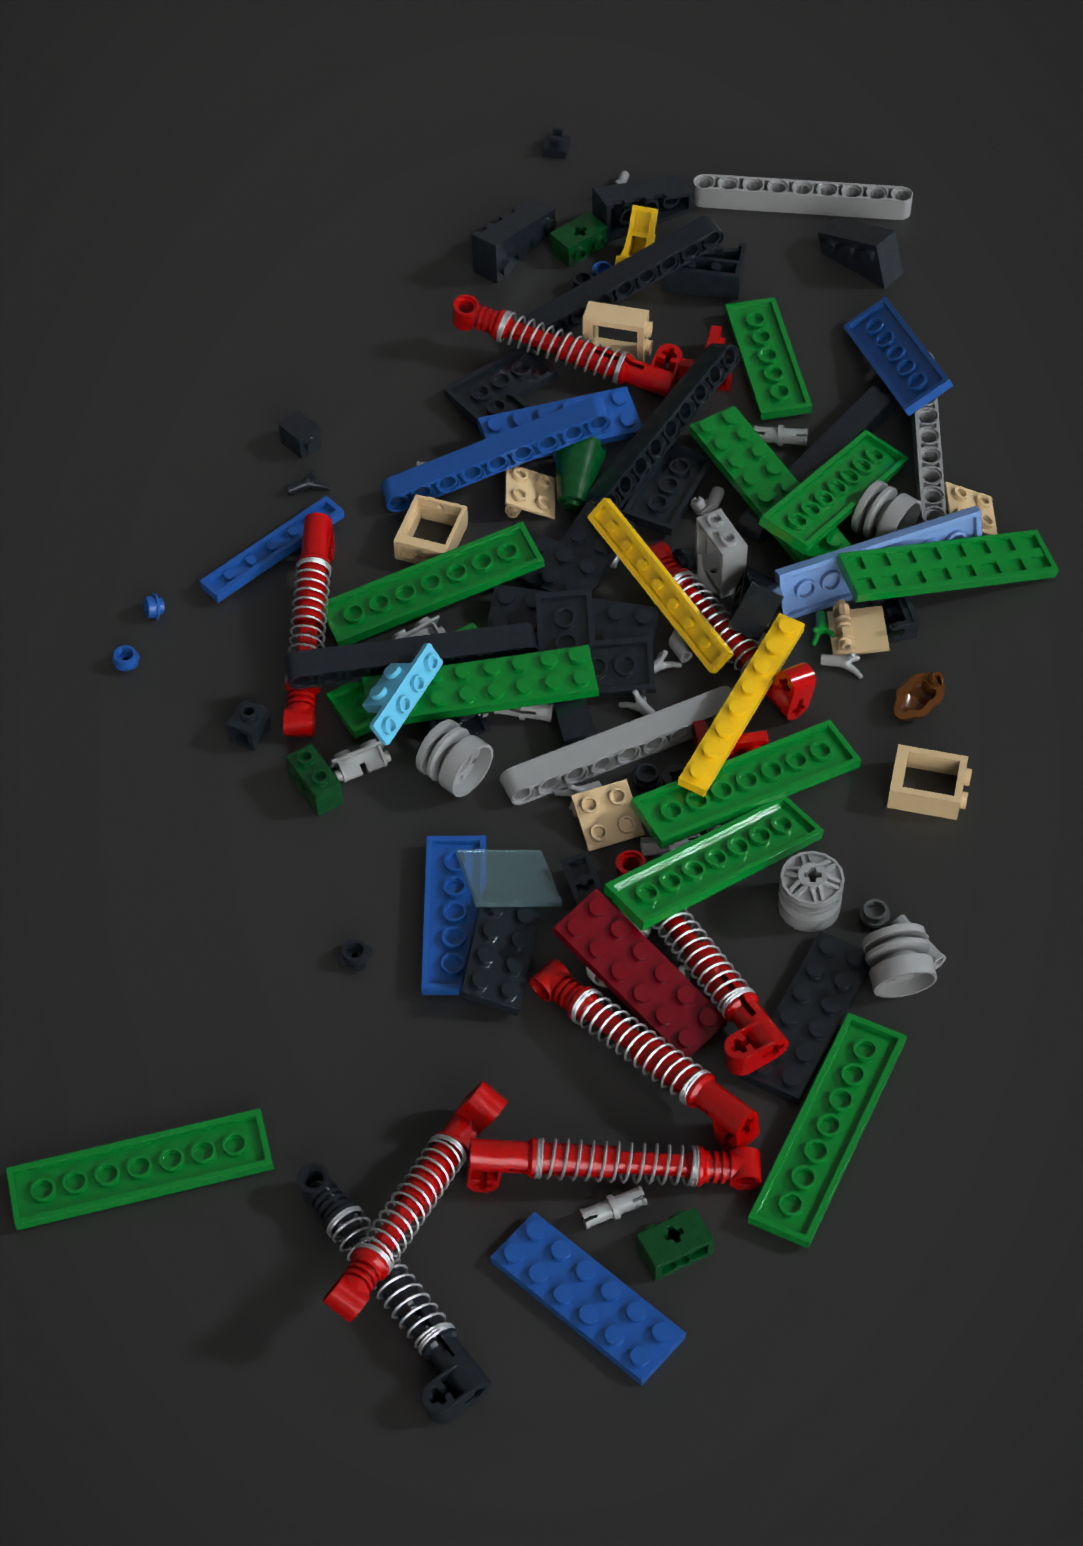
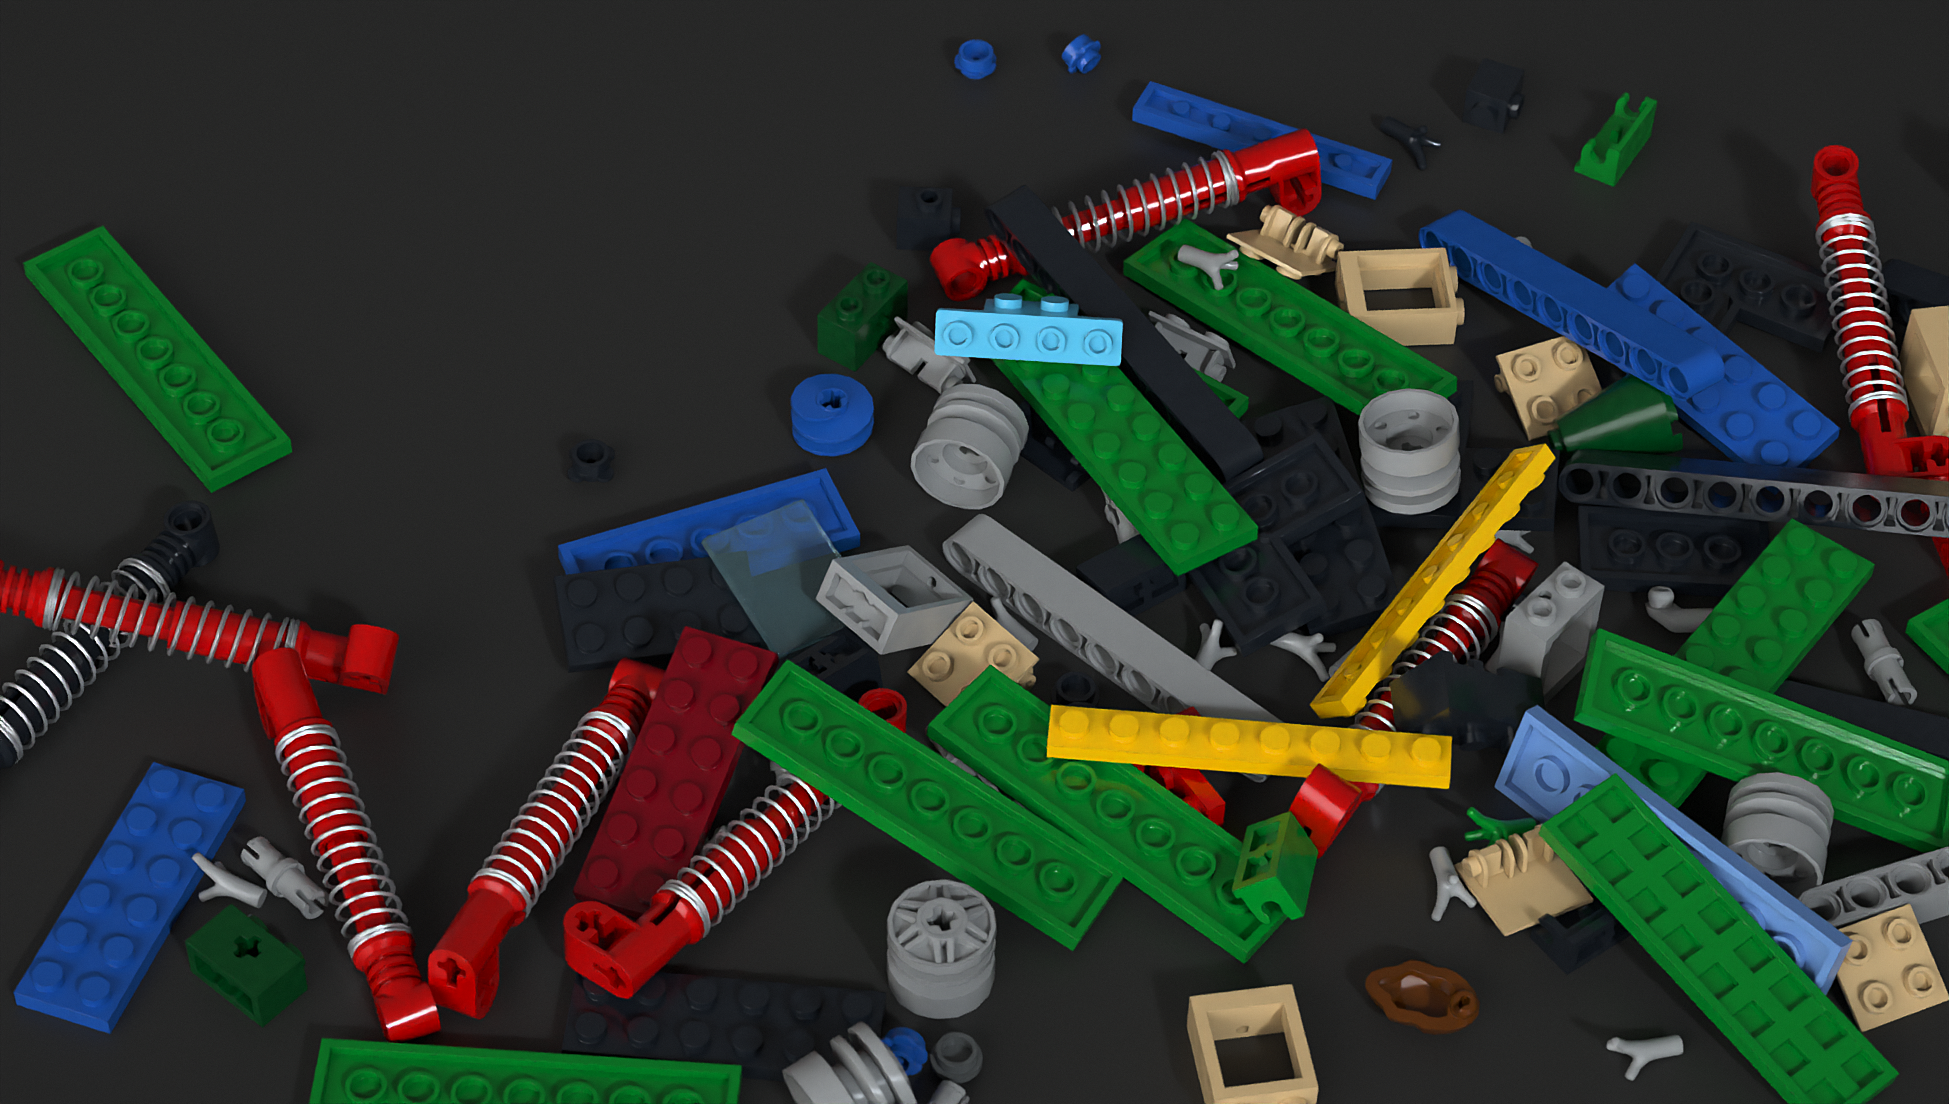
camera: 65 degrees right, 5 degrees down
(363, 396) = (1617, 142): none -> green hinge
(370, 600) = (1209, 262): none -> light grey bar
(376, 562) = (1290, 244): none -> tan hinge
(383, 821) = (831, 414): none -> blue piece
(543, 831) = (859, 596): none -> light grey window
(572, 556) = (1409, 451): none -> light grey wheel
(604, 1239) = (228, 884): none -> light grey bar
(818, 724) = (1275, 867): none -> green hinge
(860, 932) = (908, 1048): none -> blue plate
(980, 623) = (1646, 1050): none -> light grey bar

